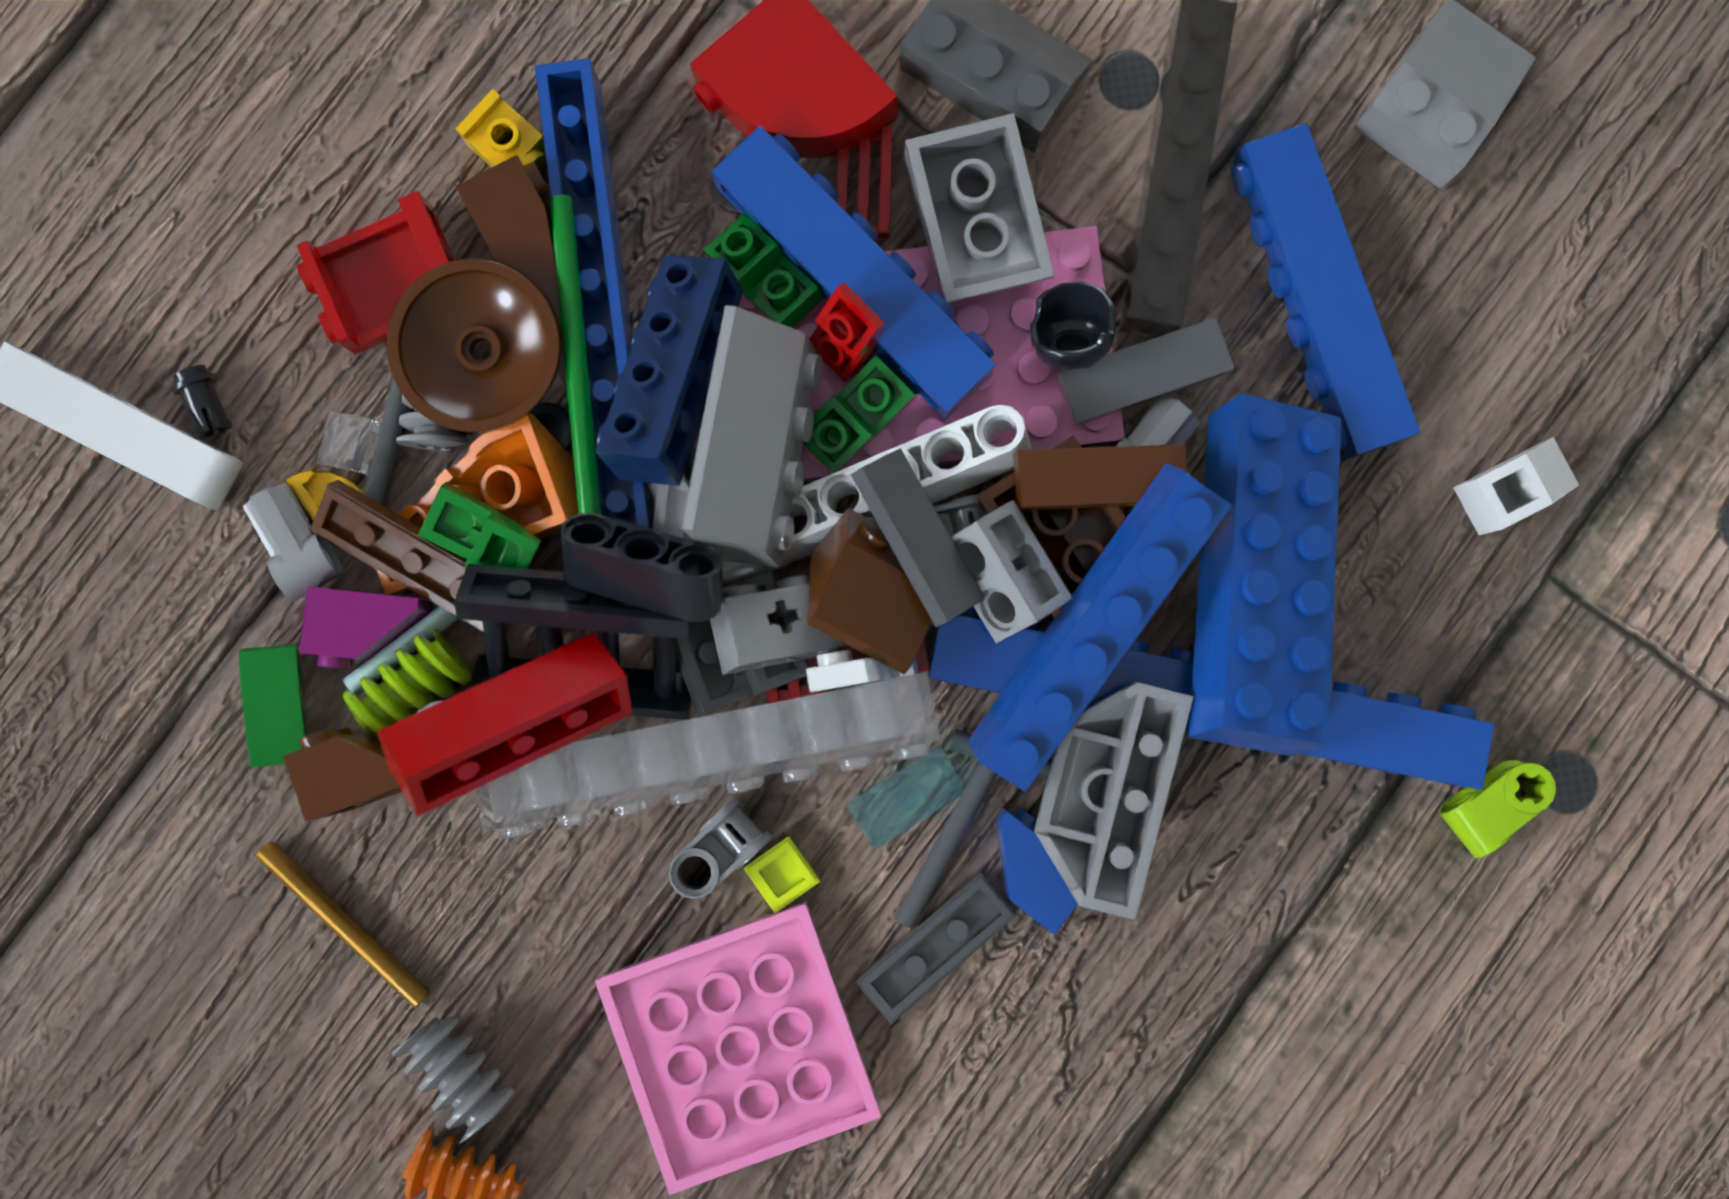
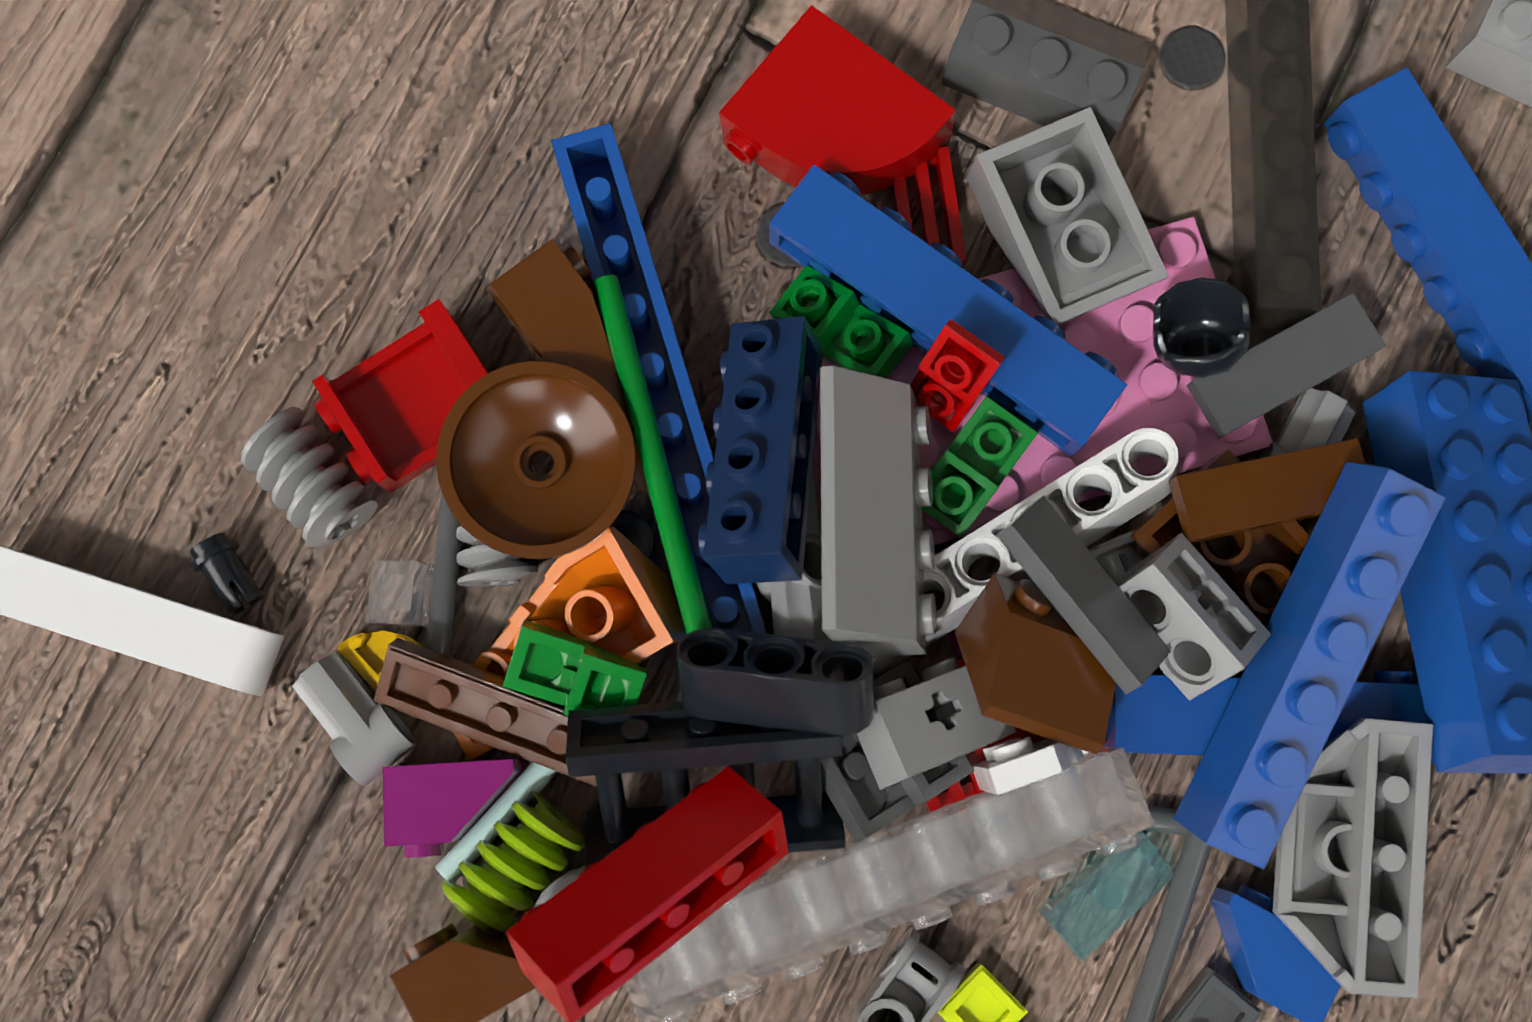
camera: 10 degrees left, 5 degrees down
(272, 702) = (360, 911): green slope -> none
(276, 333) = (303, 482): none -> light grey piece
(491, 123) = (505, 214): yellow brick -> none

